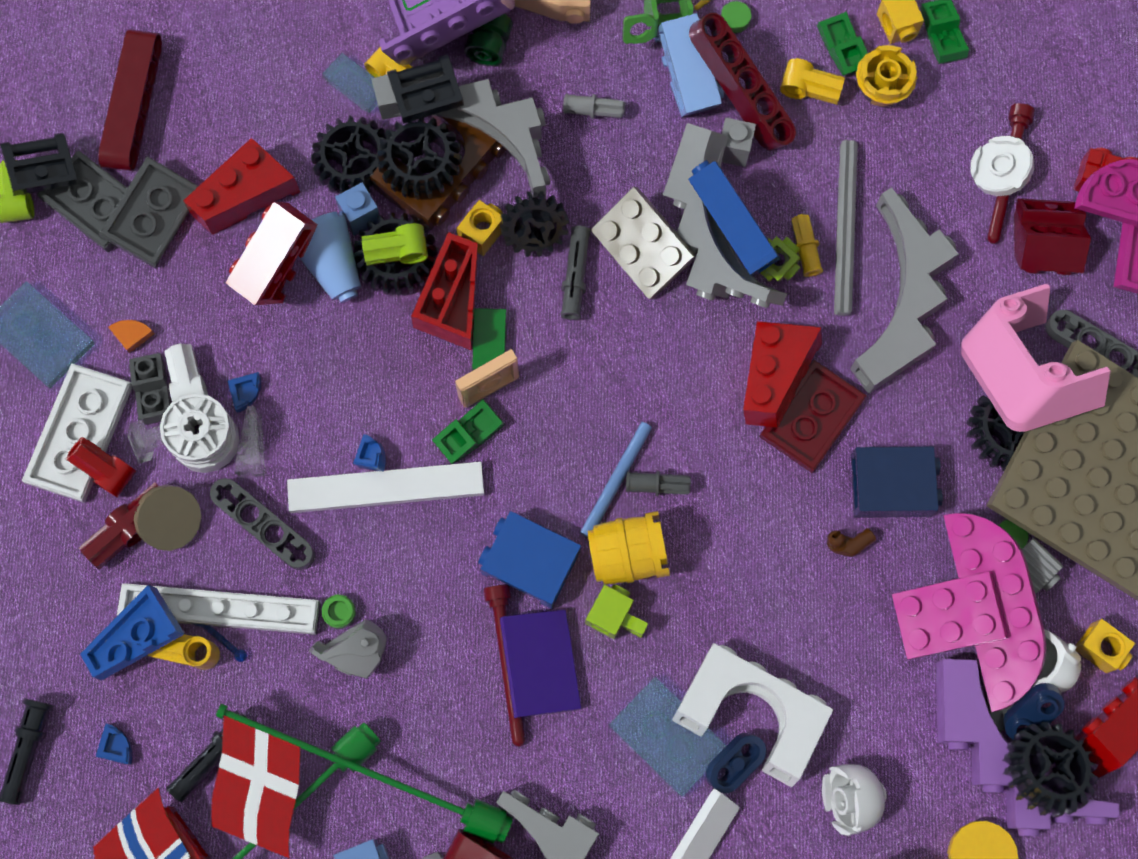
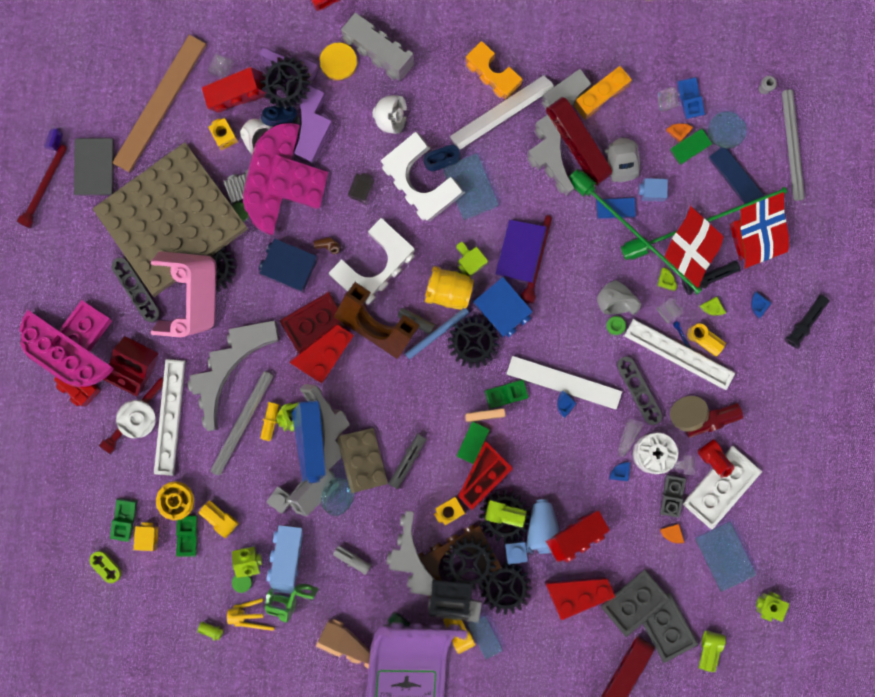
camera: 155 degrees left, 10 degrees up
(39, 172) = (691, 652): black plate -> none
(132, 635) = (729, 356): blue wing -> none
(184, 371) = (652, 487): white piece -> none
(190, 709) = (713, 307): none -> lime tile
(259, 670) = (669, 310): none -> clear tile
(283, 719) = (666, 280): none -> lime tile
(407, 810) = (623, 206): none -> blue tile
(538, 226) = (419, 496): black gear -> none
(540, 482) = (484, 330): none -> black gear
(656, 174) = (337, 497): none -> clear light blue tile
(683, 436) = (354, 315): none -> reddish brown arch
(728, 75) = (265, 538): dark red beam -> none
(736, 576) = (398, 253): none -> white arch
(750, 34) = (246, 562): none -> lime brick
(841, 654) = (361, 188): none -> clear smoke brick
(954, 194) = (169, 417): none -> white tile

